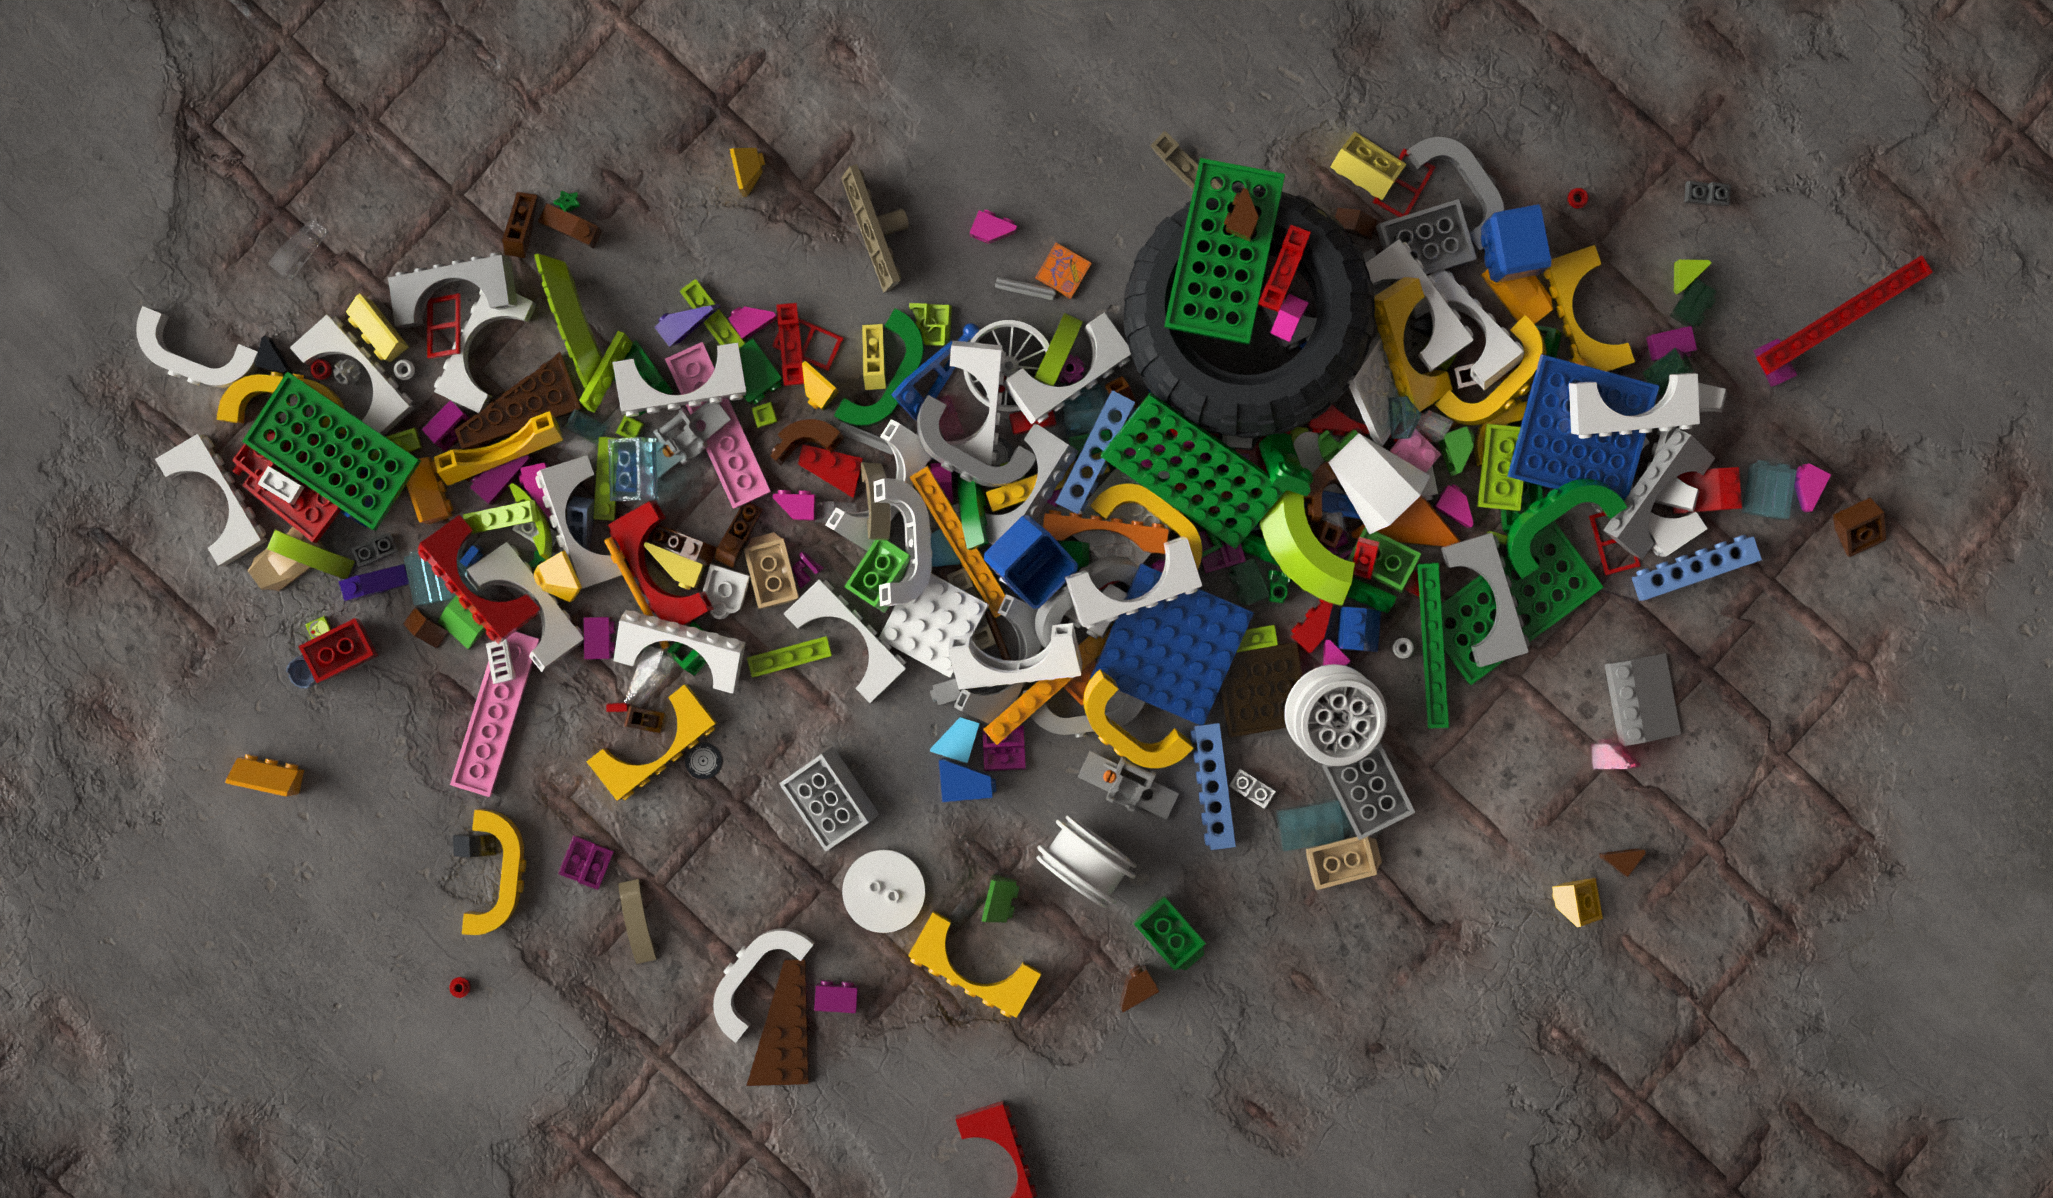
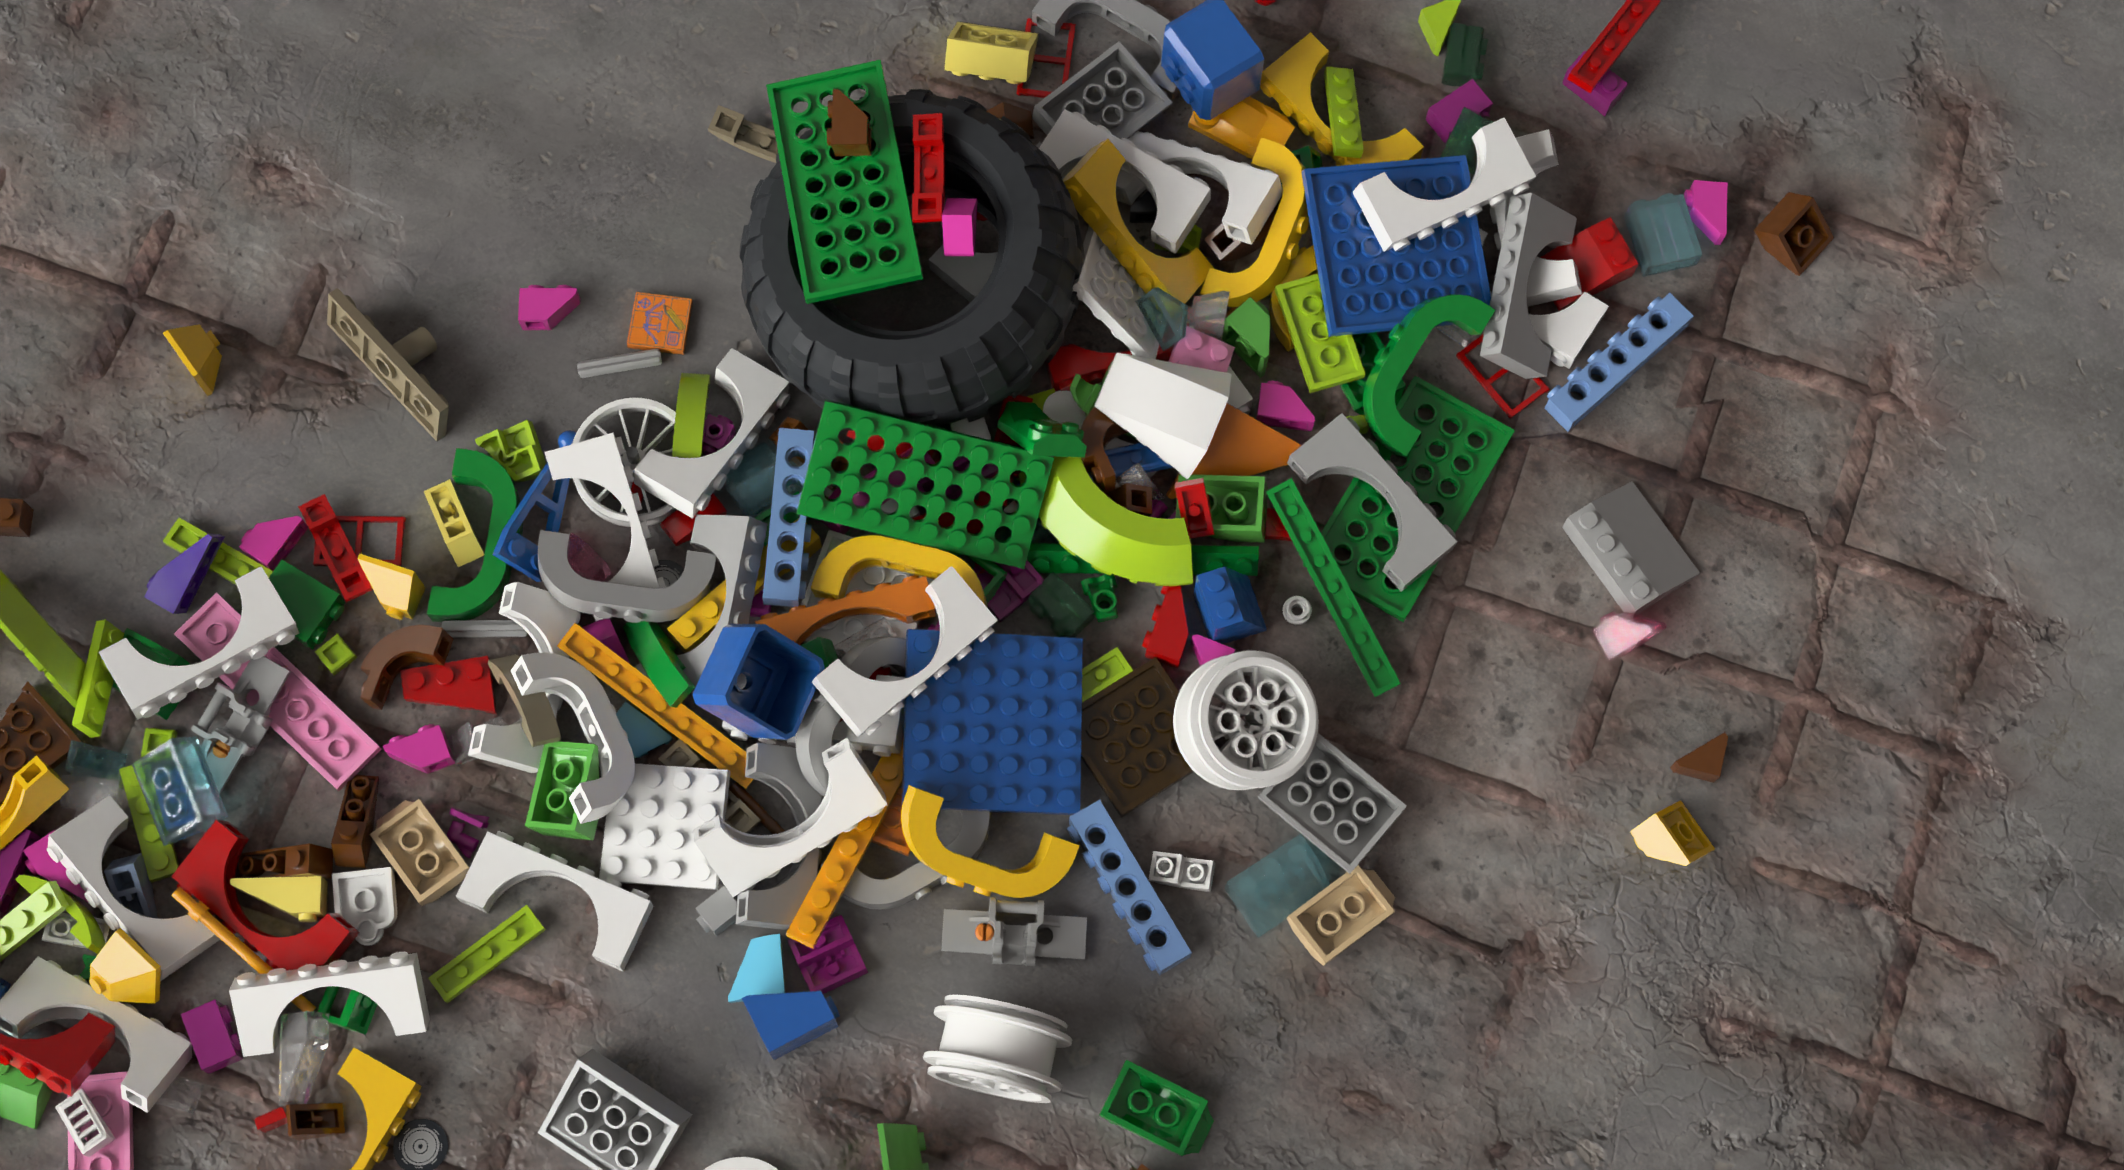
camera: 25 degrees left, 15 degrees down
(1591, 313) = (1343, 112): none -> lime plate

